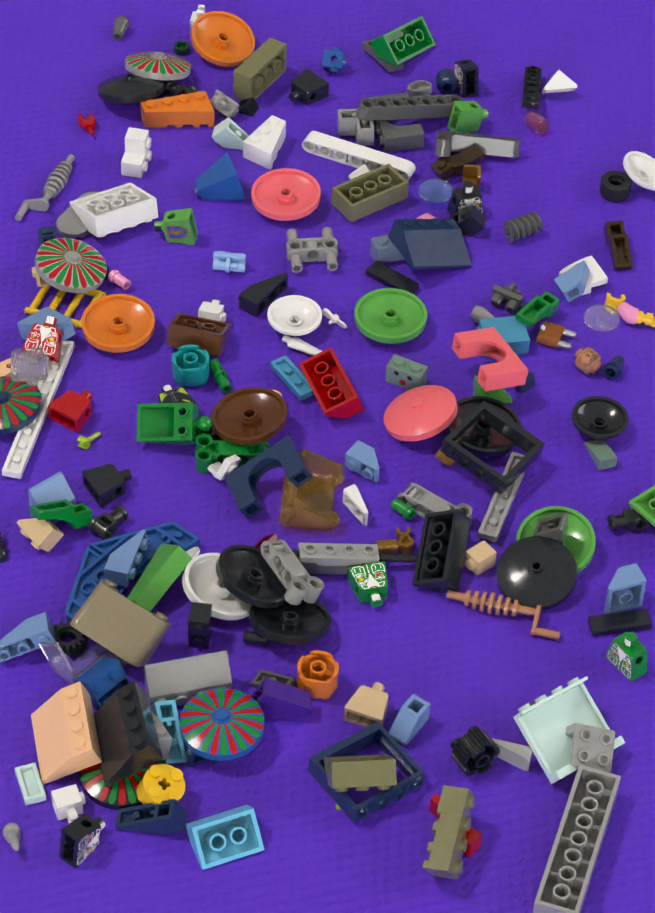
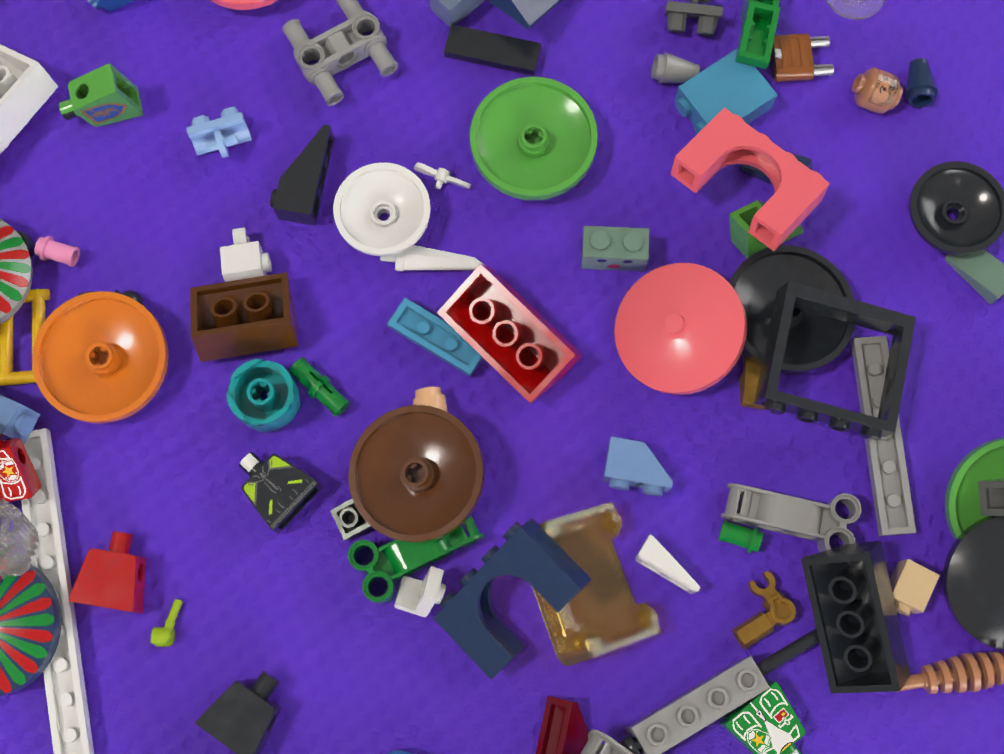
camera: 20 degrees left, 30 degrees up
(165, 423) = (286, 553): green slope -> none

